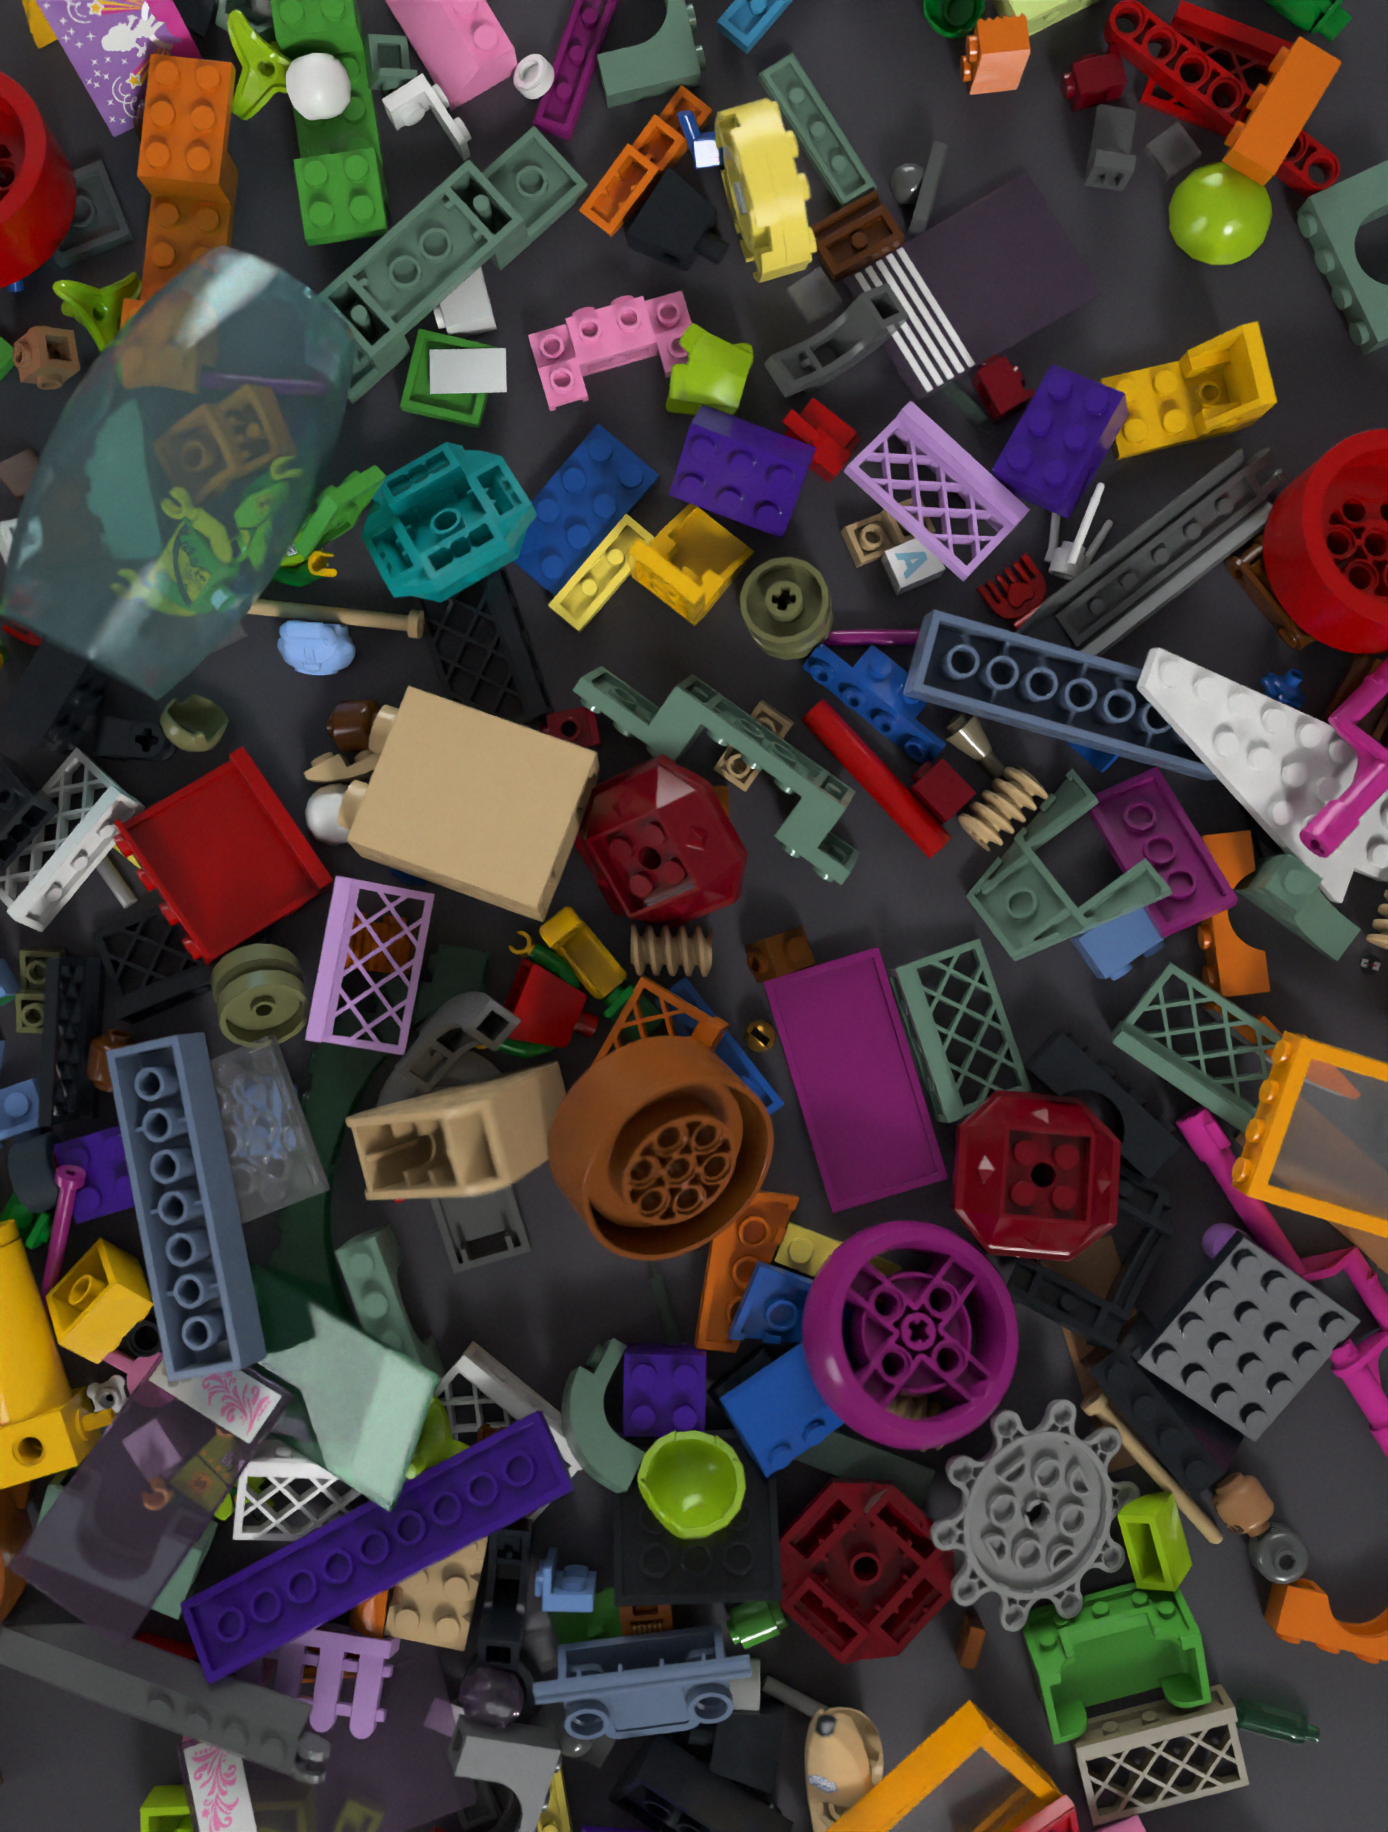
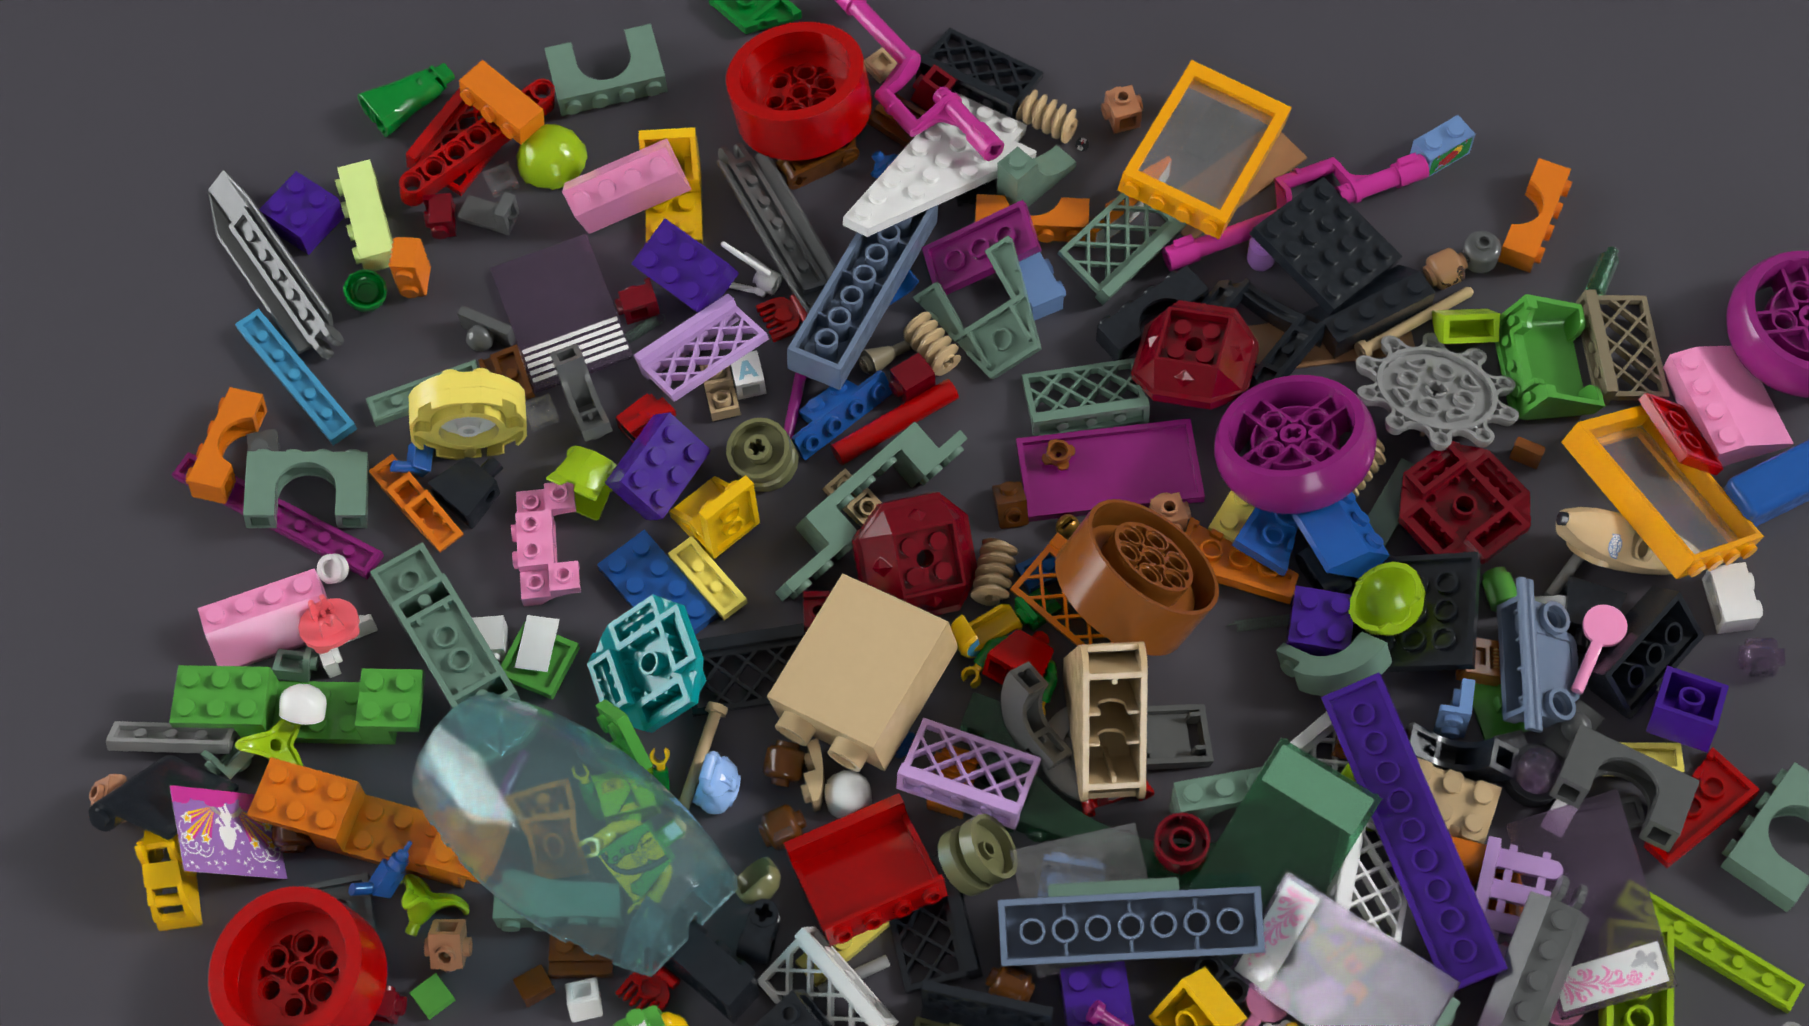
camera: 75 degrees left, 25 degrees down
(117, 255) = (386, 876): none -> blue piece
(232, 1176) = (1113, 887): none -> sand green tile
(272, 740) = (781, 825): none -> reddish brown head
(285, 1272) = (1184, 827): none -> dark red piece
(421, 98) = (328, 624): none -> coral plate
(710, 1767) = (1603, 628): none -> bright pink piece
(793, 1153) = (1172, 508): none -> nougat brick
(871, 1001) = (1058, 446): none -> dark orange plate
(1173, 324) = (626, 186): none -> bright pink slope

